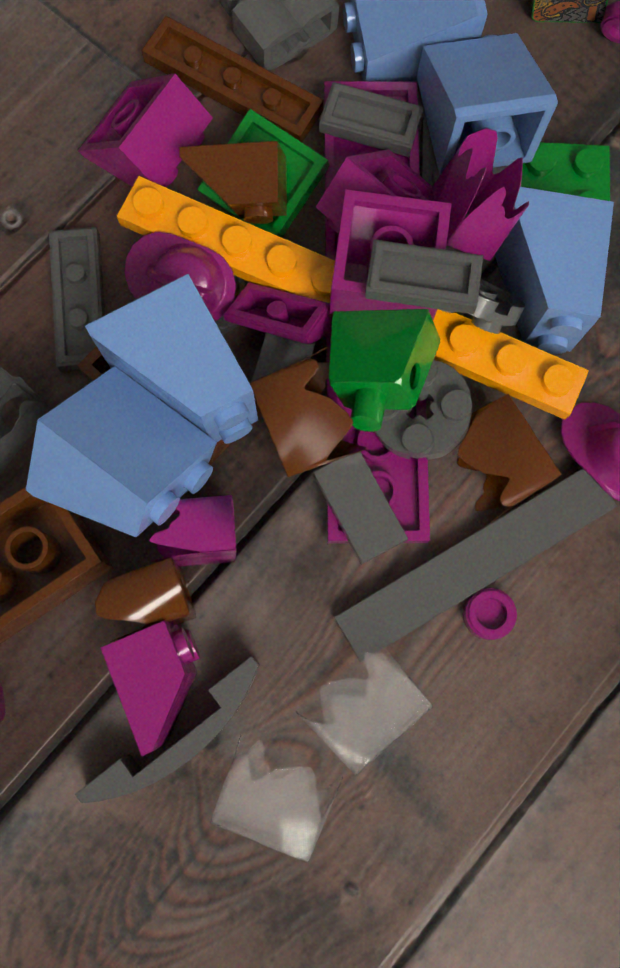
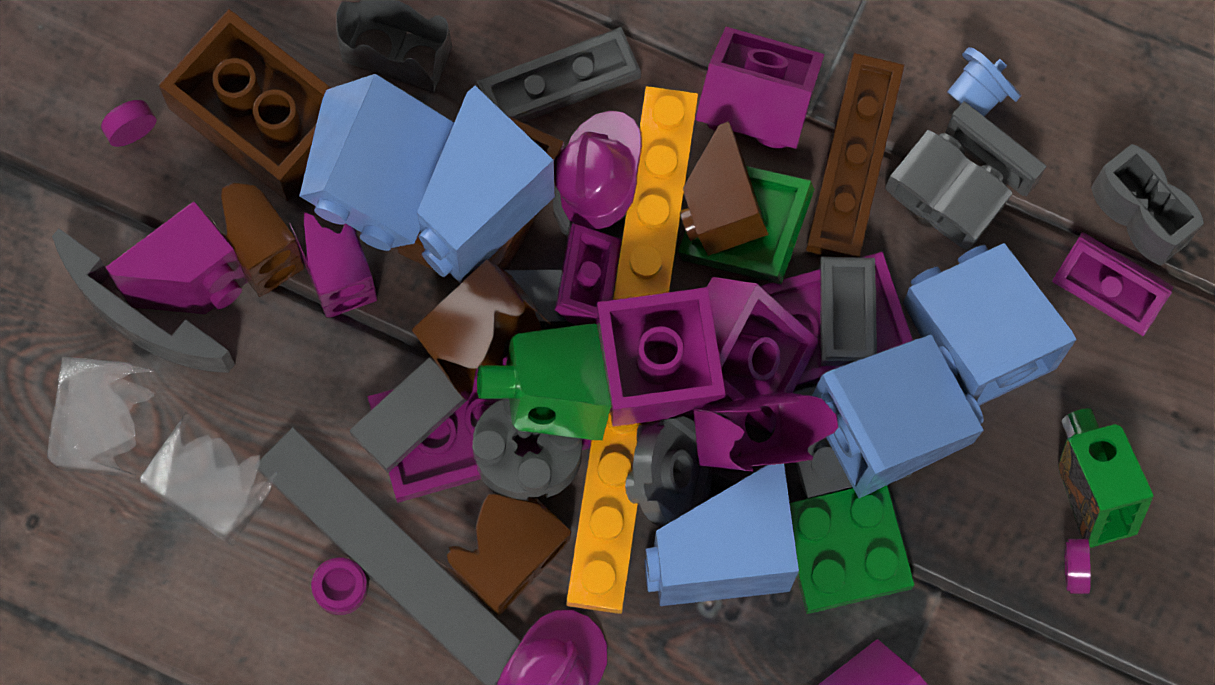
camera: 75 degrees right, 5 degrees down
(424, 276) = (632, 384): dark grey tile -> none

